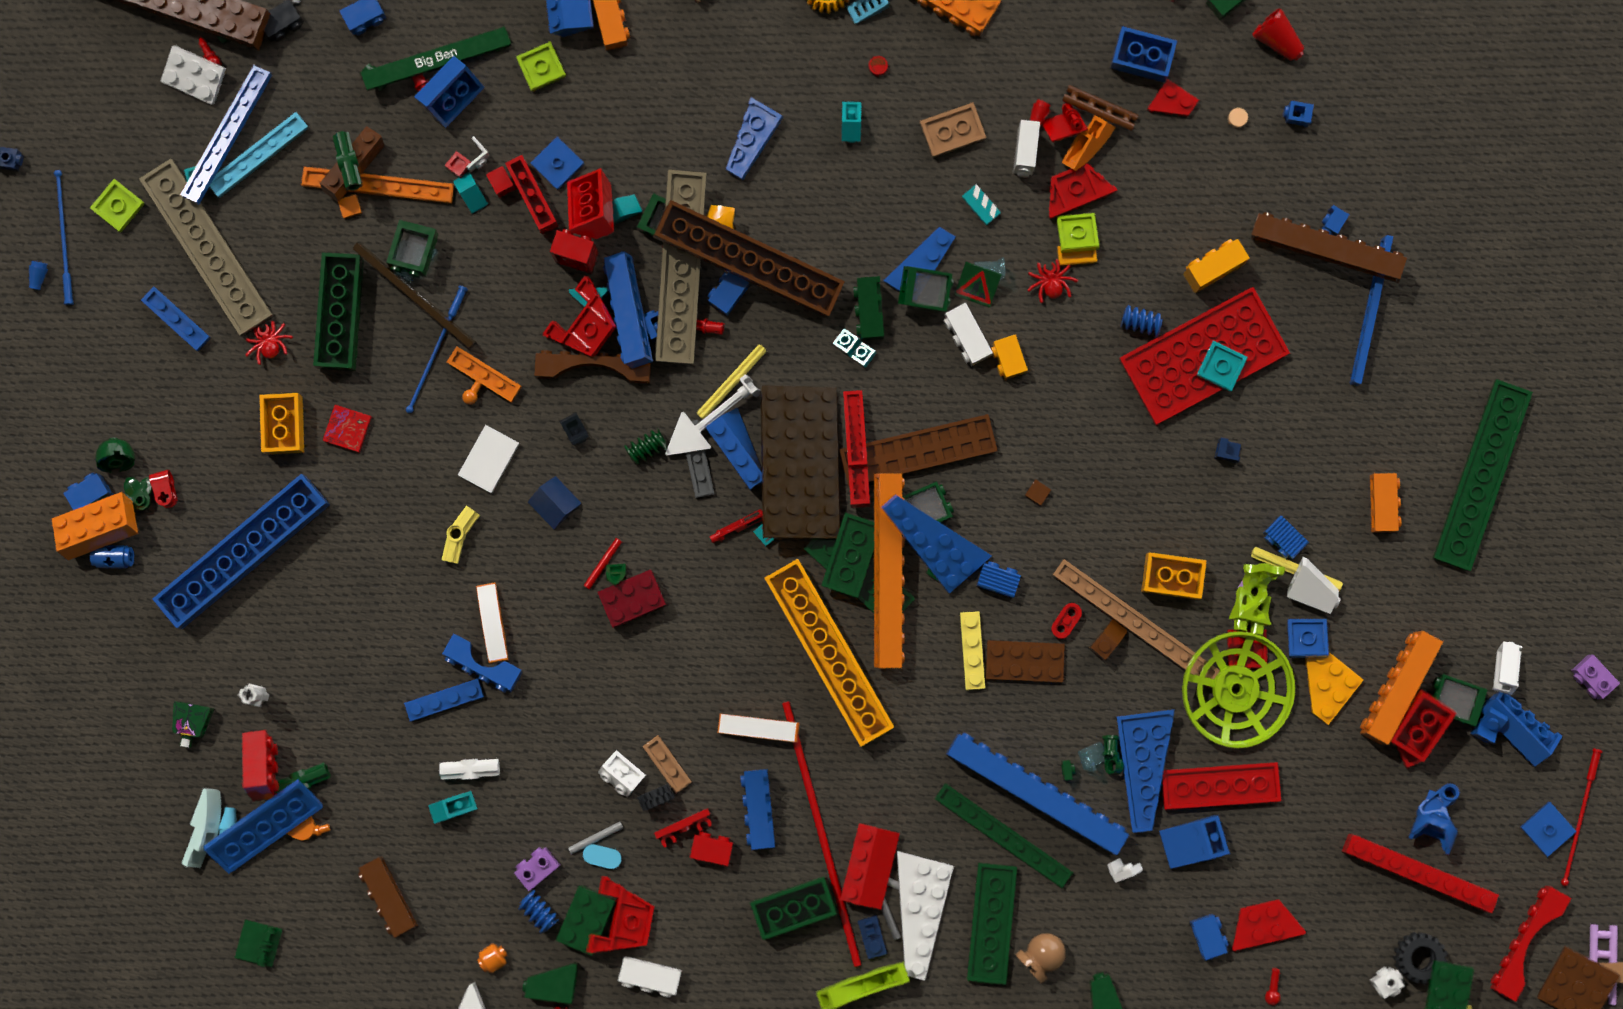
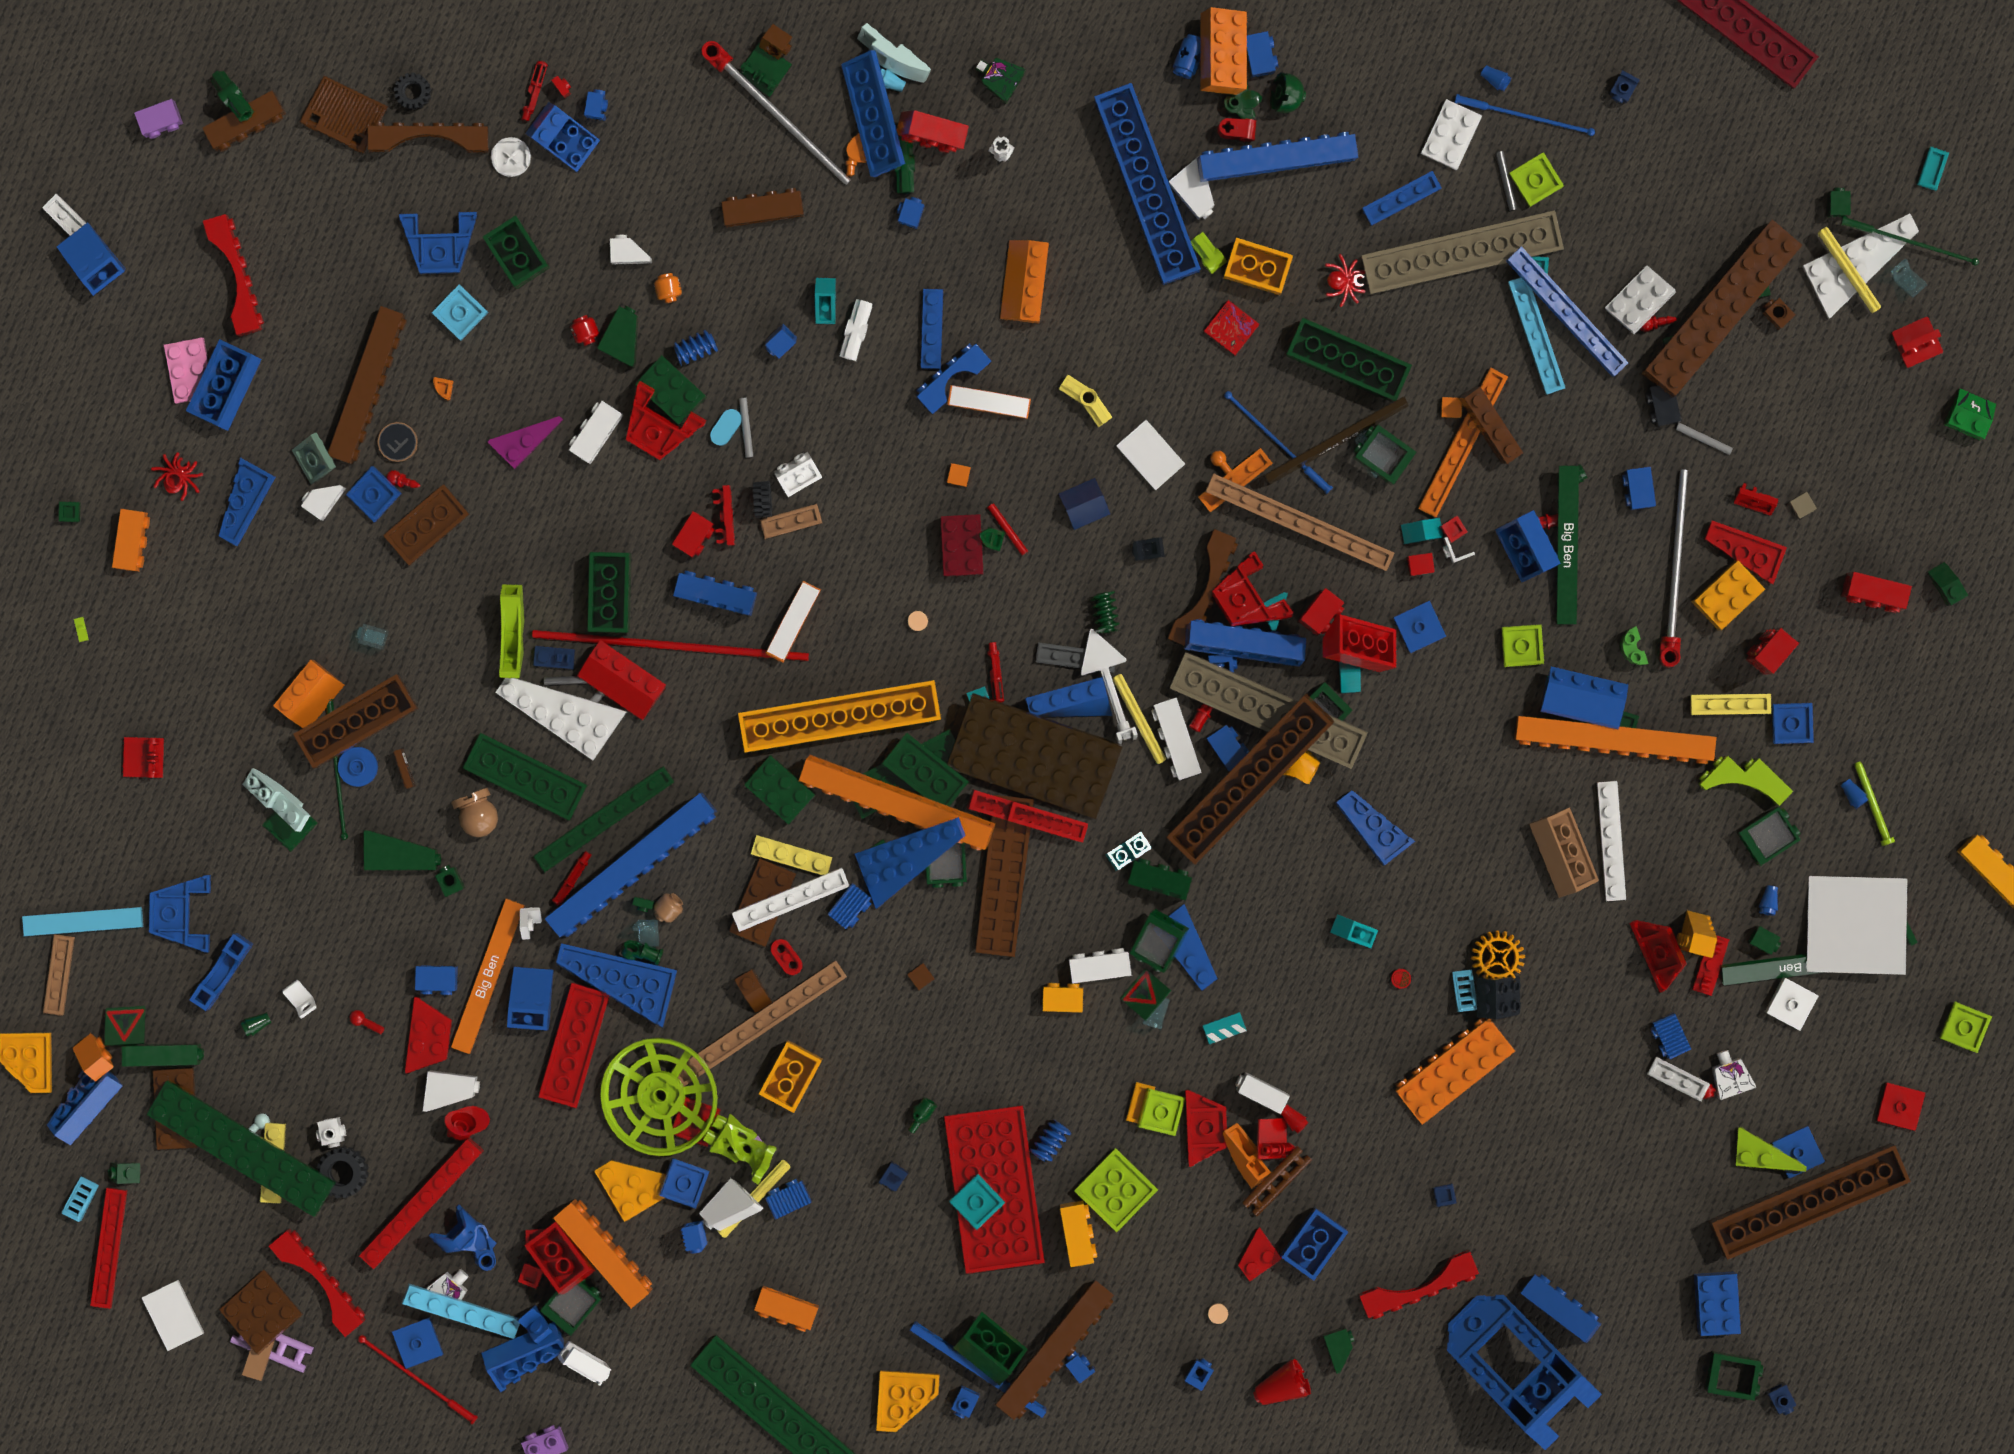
camera: 110 degrees right, 5 degrees up
(103, 296) = (1451, 134): none -> white plate
(128, 232) = (1506, 180): none -> flat silver bar
(176, 442) = (1277, 157): none -> blue brick
(228, 941) = (776, 42): none -> reddish brown brick
(232, 507) = (1193, 192): none -> white slope
(264, 984) = (722, 61): none -> flat silver piece
(288, 470) = (1210, 256): none -> lime piece
(343, 758) = (910, 212): none -> blue brick
(347, 160) = (1491, 422): dark green piece -> none
(370, 630) = (1024, 281): none -> orange slope
(501, 302) = (1299, 522): none -> medium nougat plate
(504, 834) = (780, 341): none -> blue brick
(531, 194) = (1395, 590): red brick -> none
(537, 868) = (737, 361): medium lavender brick -> none
(569, 626) = (958, 475): none -> orange tile
(716, 614) = (917, 621): none -> light nougat tile
(737, 340) = (1177, 739): none -> white brick
(916, 682) = (780, 789): none -> dark green brick
(952, 130) = (1308, 1027): medium nougat plate -> none
(1013, 636) = (790, 899): none -> white plate
(1052, 281) = (1122, 1068): red animal -> none
(1062, 745) = (668, 907): none -> medium nougat head
(1069, 844) = (572, 878): none -> red piece
(1122, 954) = (458, 883): none -> dark green brick
(1161, 445) = (922, 1113): none -> dark green piece
(1163, 247) = (1116, 1190): none -> lime plate
(1188, 890) = (487, 976): none -> orange tile
(1305, 887) = (448, 1088): none -> white slope
(1329, 859) = (466, 1121): none -> red piece
(1349, 305) = (990, 1348): none -> dark green brick
(1353, 610) = (694, 1237): none -> blue brick
(1405, 311) = (964, 1402): none -> blue brick
(1422, 368) = (903, 1397): none -> light orange plate
(1446, 747) = (530, 1275): none -> red plate
(1492, 819) = (450, 1285): none -> torso
(1505, 799) = (461, 1311): none -> medium azure plate

